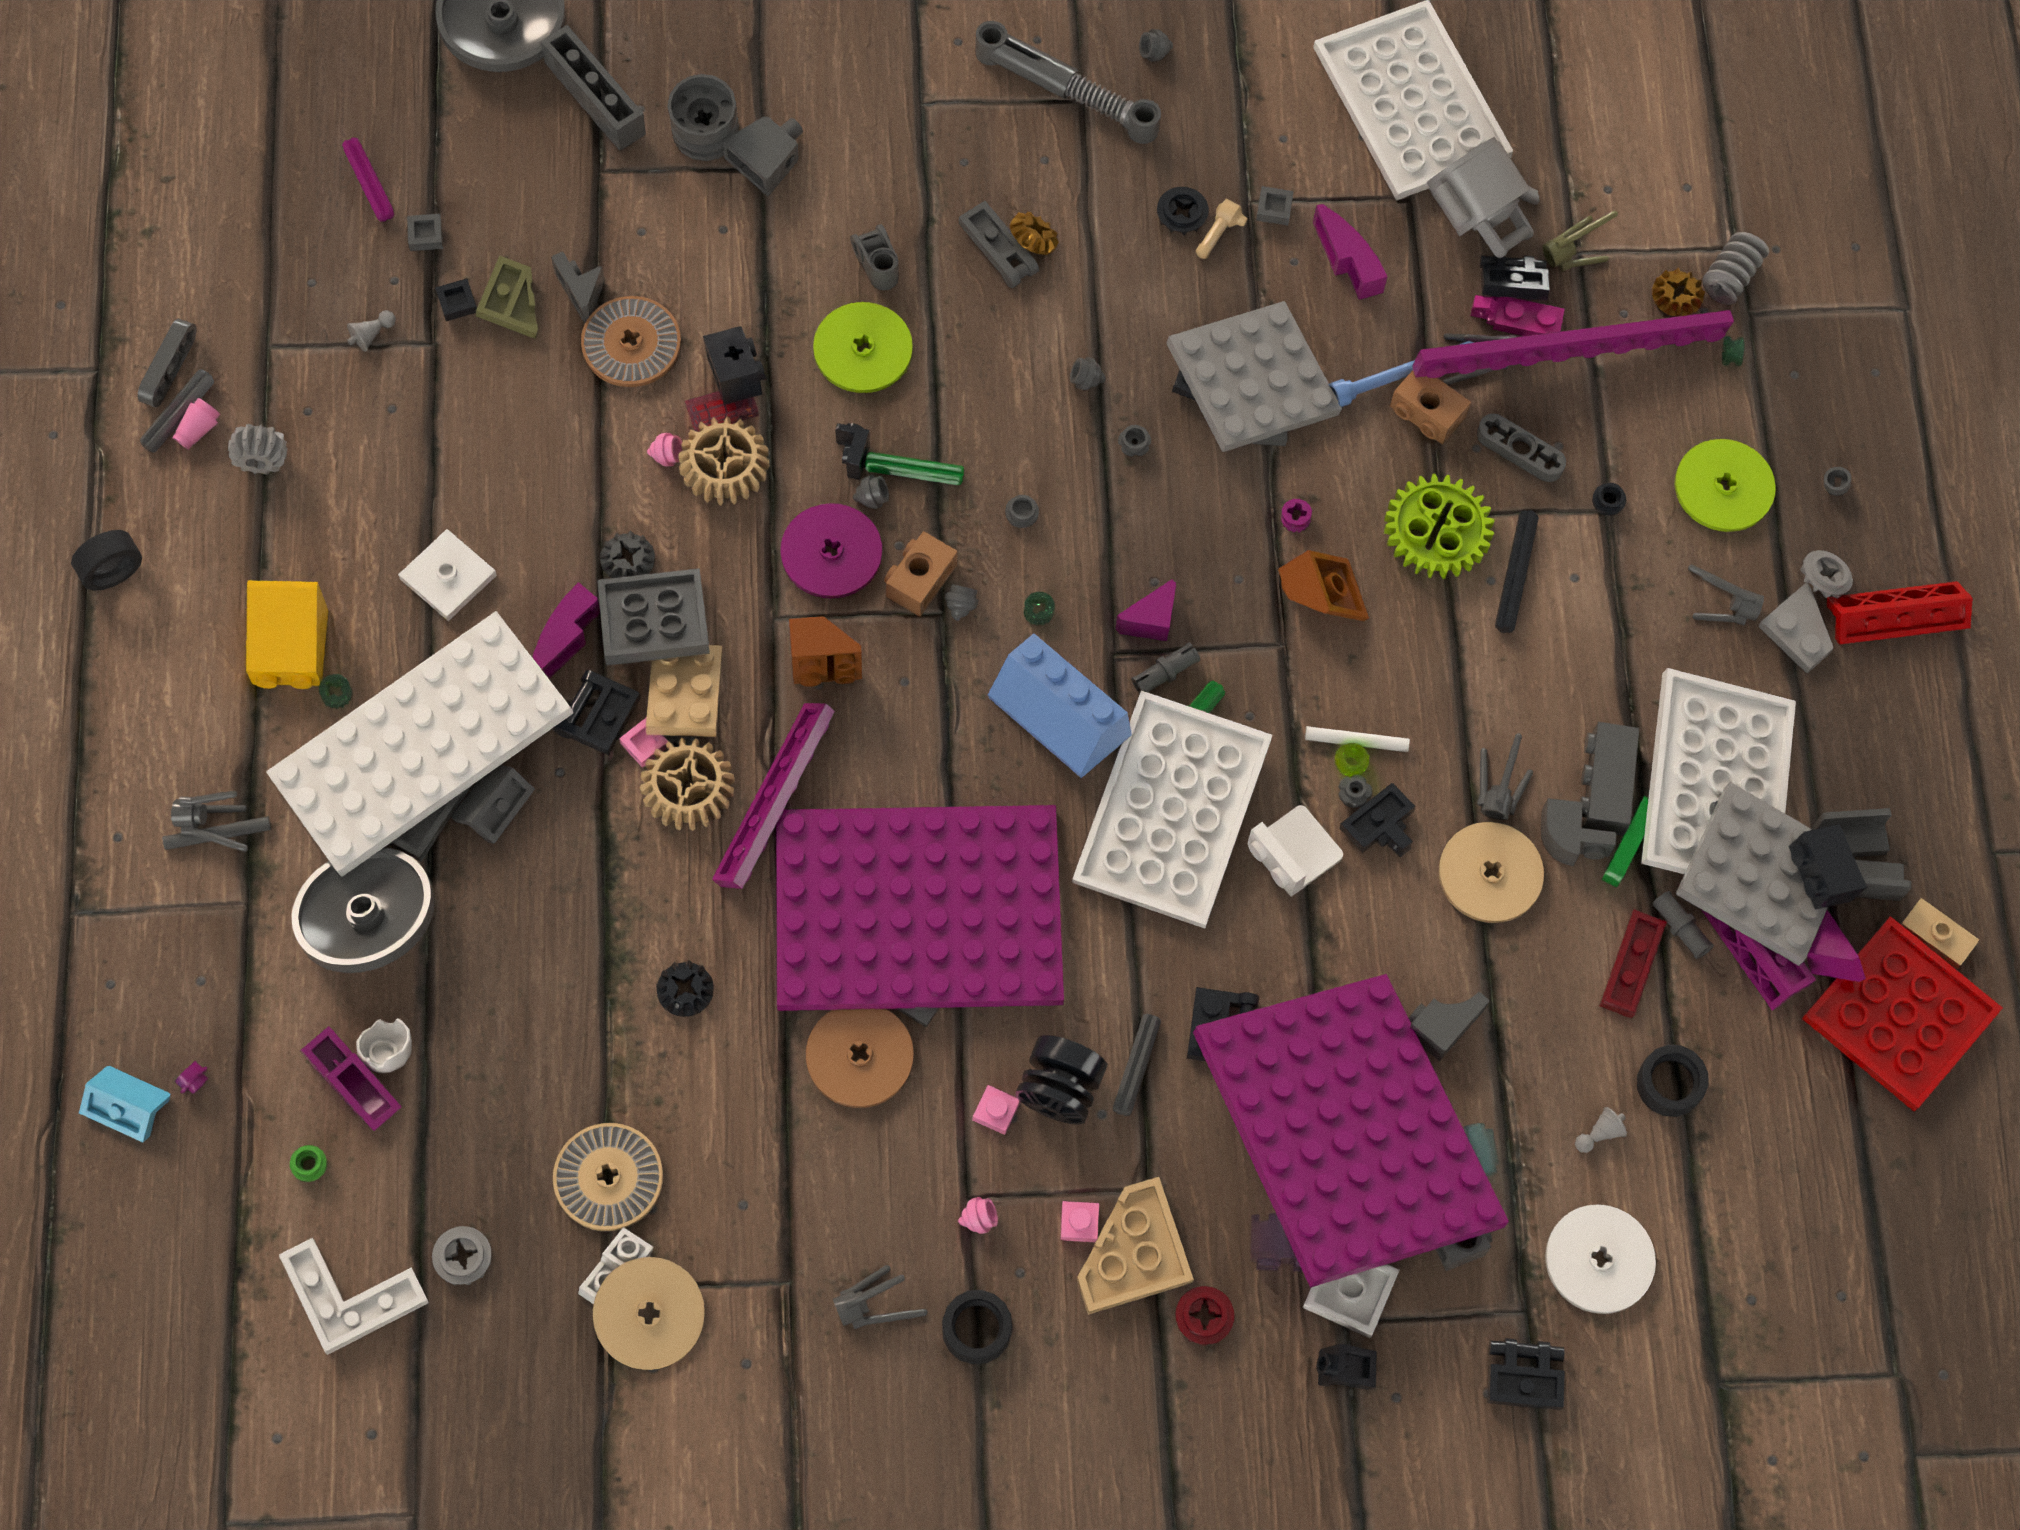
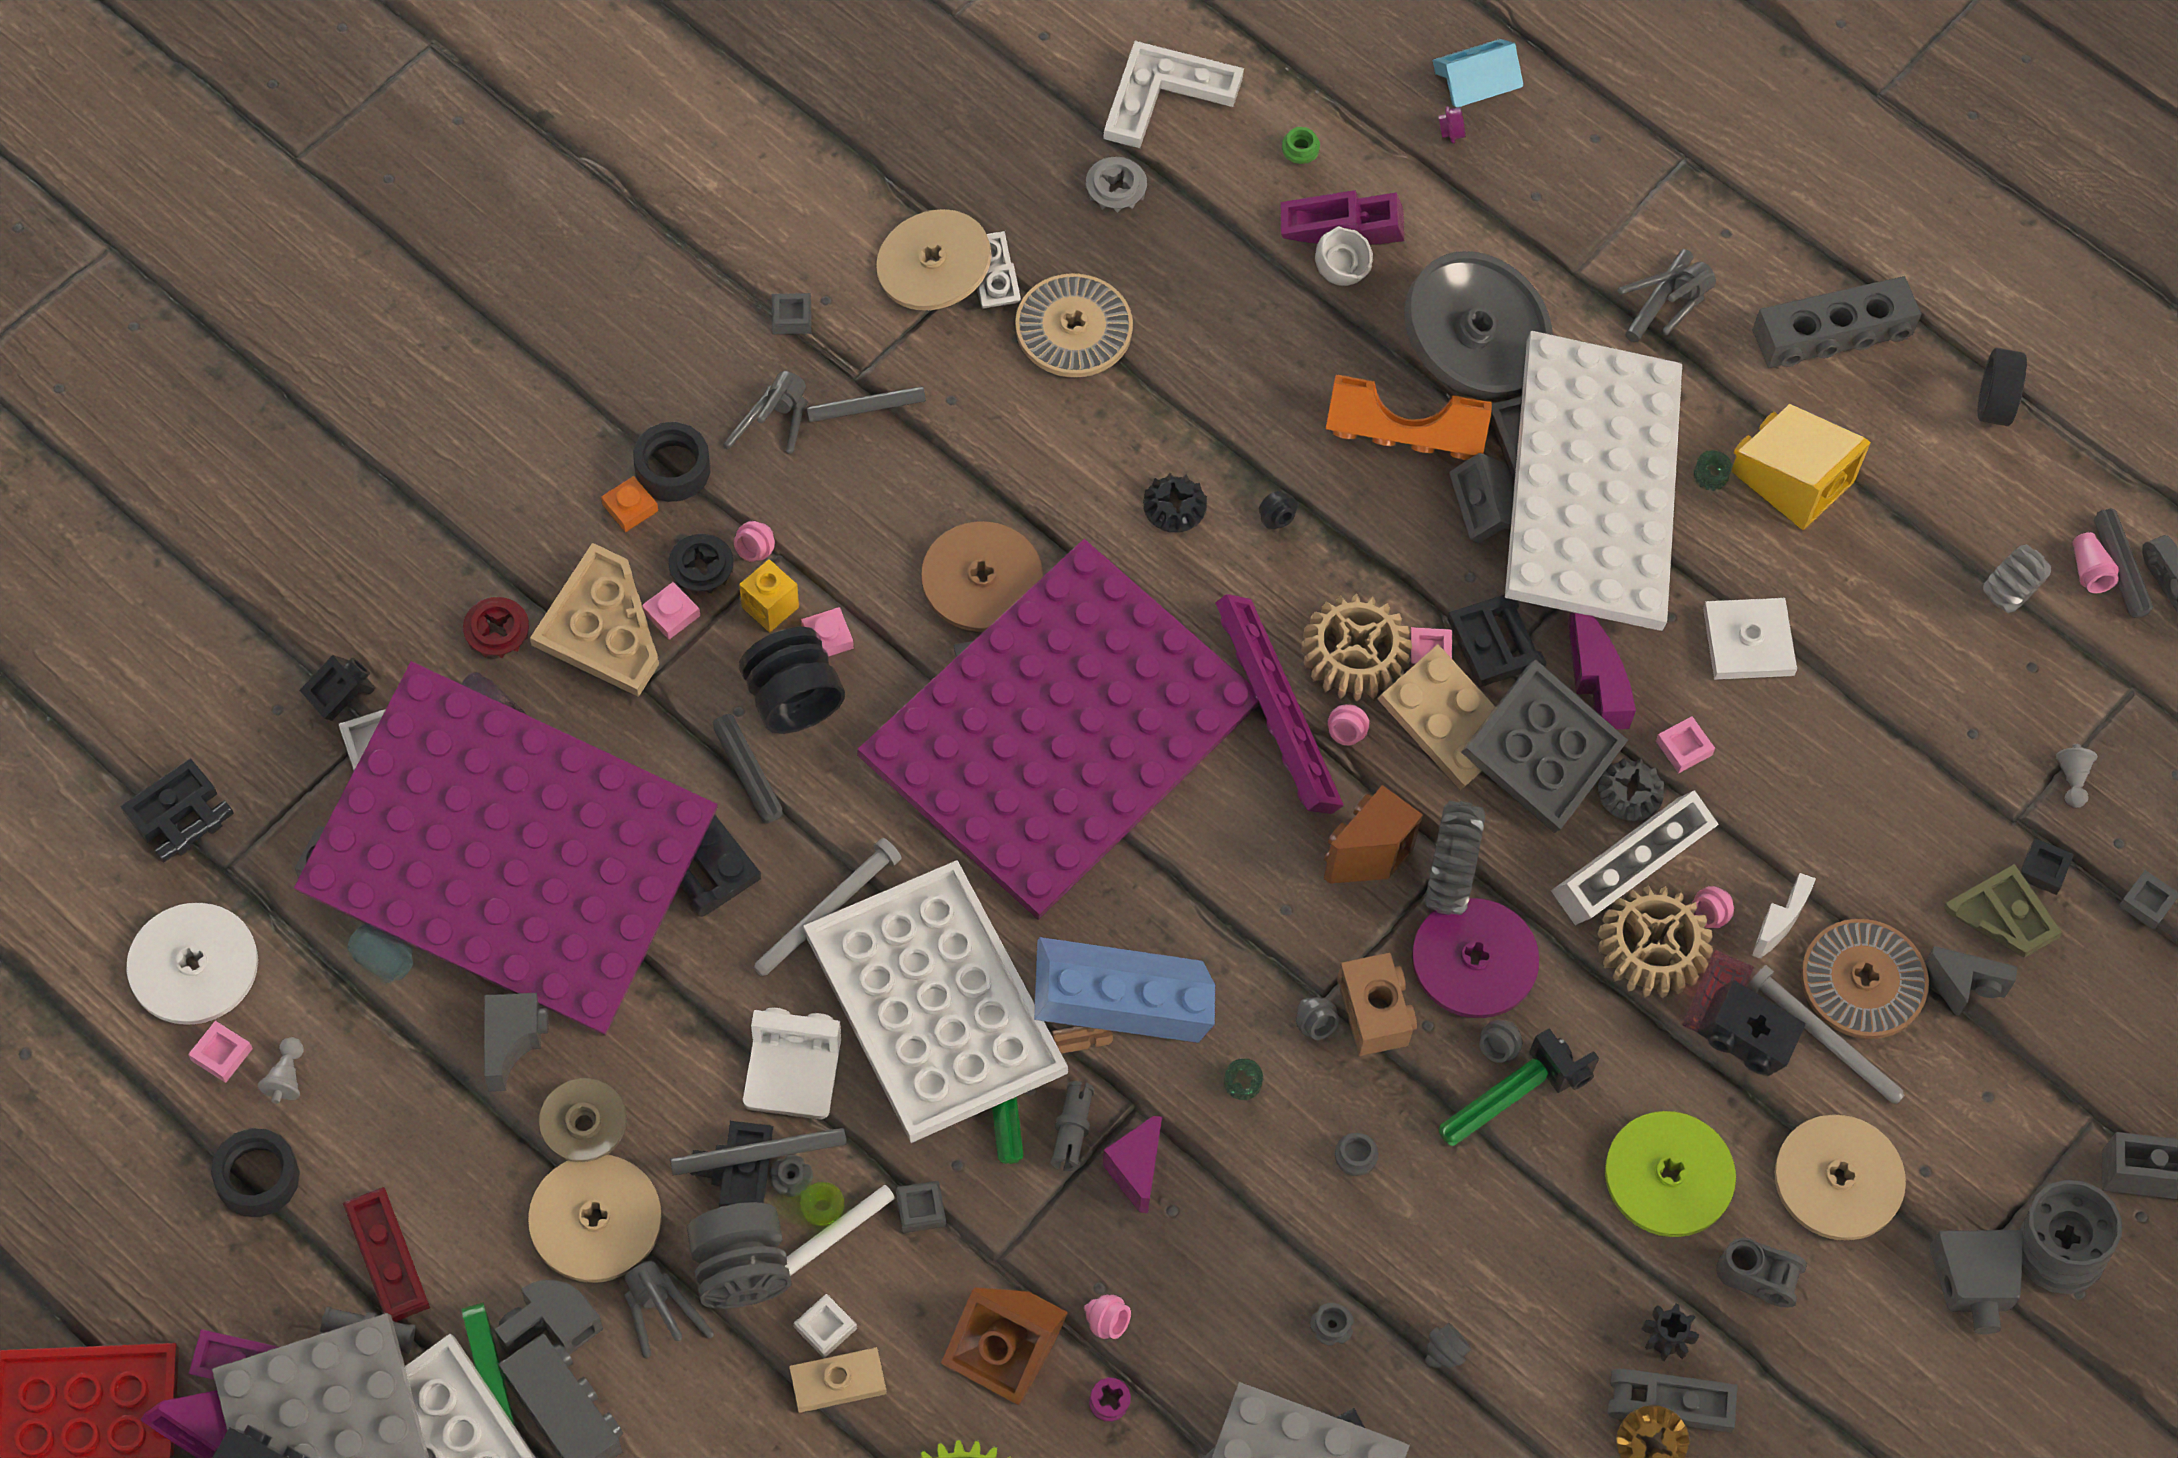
camera: 135 degrees right, 5 degrees down
(180, 735) = (1851, 308): none -> dark grey brick
(461, 859) = (1456, 428): none -> orange arch
(566, 548) = (1685, 744): none -> bright pink plate
(630, 916) = (1277, 510): none -> black plate
(646, 404) = (1781, 919): none -> white slope
(681, 507) = (1634, 857): none -> white brick
(689, 388) = (1763, 982): none -> light grey bar
(745, 745) = (1348, 724): none -> bright pink plate
(764, 284) = (1810, 1189): none -> tan piece
(782, 1371) = (791, 313): none -> dark grey tile
(787, 594) = (1455, 857): none -> dark grey gear
(804, 1252) = (865, 404): none -> dark grey bar
(961, 272) = (1681, 1330): none -> black gear
(1012, 1162) = (769, 595): none -> yellow brick
(1022, 1219) = (712, 551): none -> black gear
(1032, 1327) = (629, 503): none -> orange plate
(1160, 929) = (884, 855): none -> light grey bar
(1255, 554) = (1107, 1316): none -> bright pink plate
(1296, 709) = (920, 1206): none -> dark grey tile
(1366, 811) = (757, 1151): none -> dark grey bar
(1414, 694) = (825, 1326): none -> white tile
(1436, 659) = (837, 1380): none -> tan plate
(1436, 758) = (738, 1255): none -> dark grey wheel
(1459, 918) = (580, 1101): none -> dark tan dish
(1631, 1178) = (220, 1051): none -> bright pink plate

